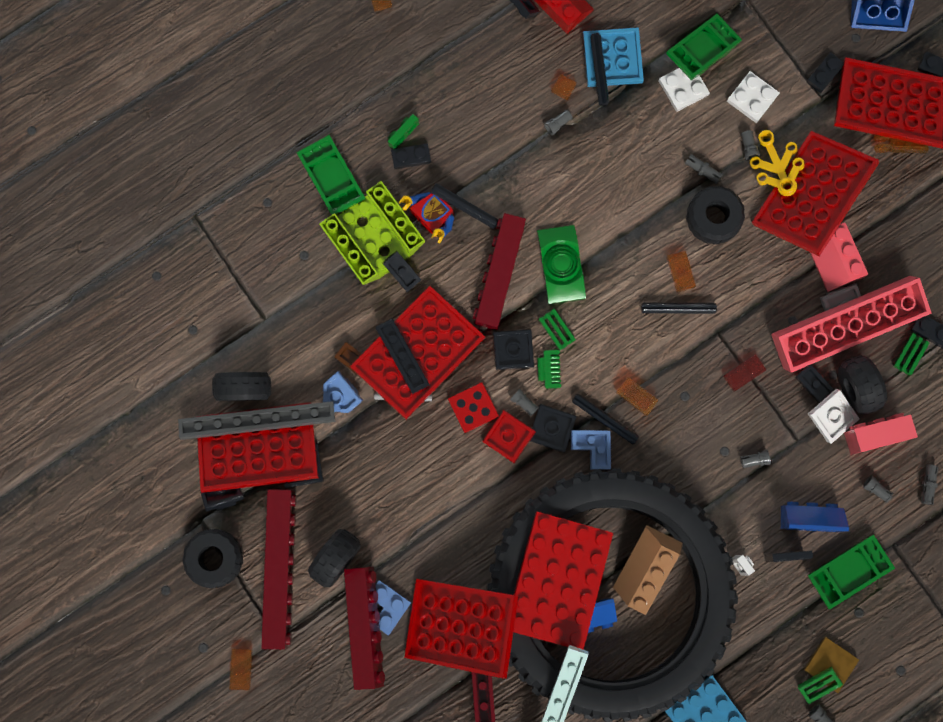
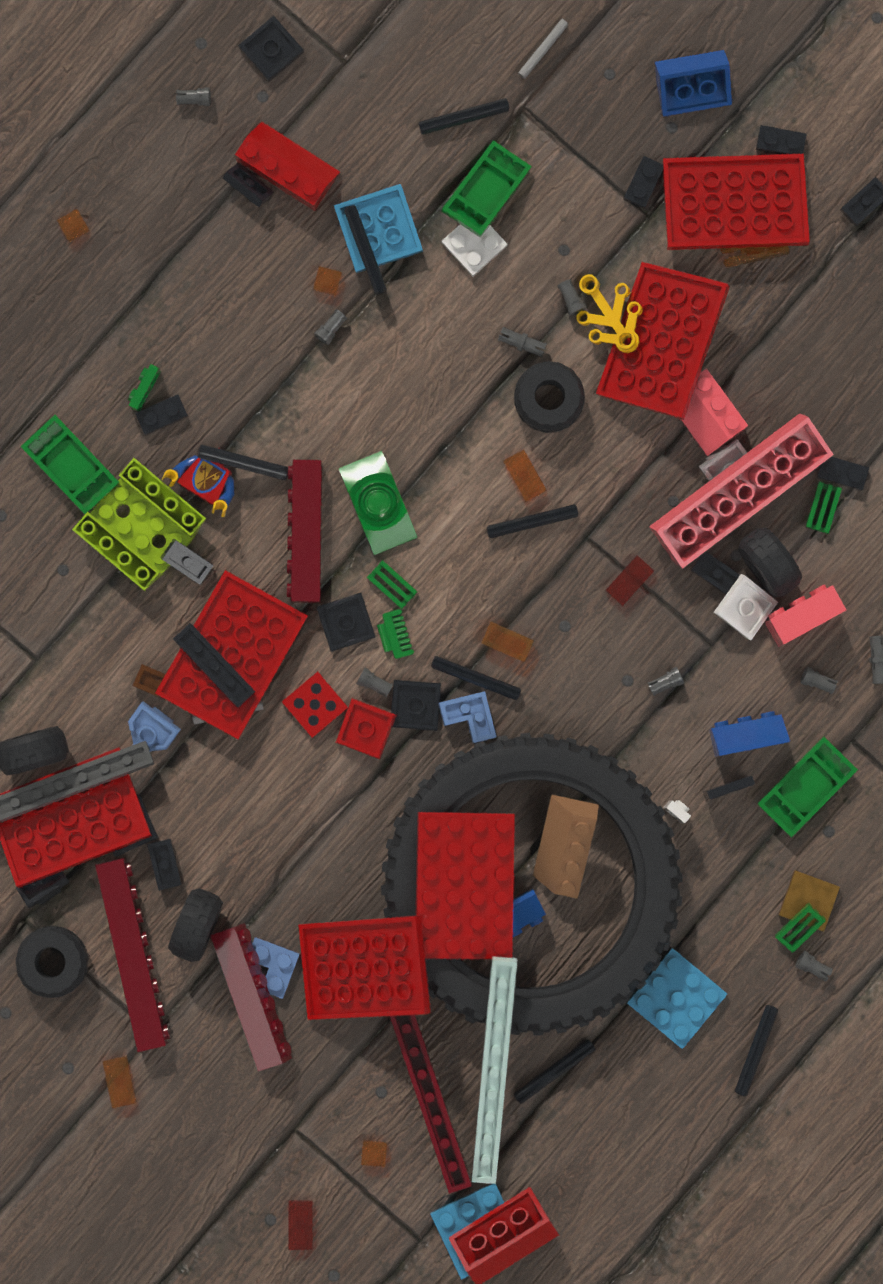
camera: 15 degrees left, 5 degrees up
(322, 504) = (164, 864): none -> black plate
(753, 97) = (562, 235): white plate -> none

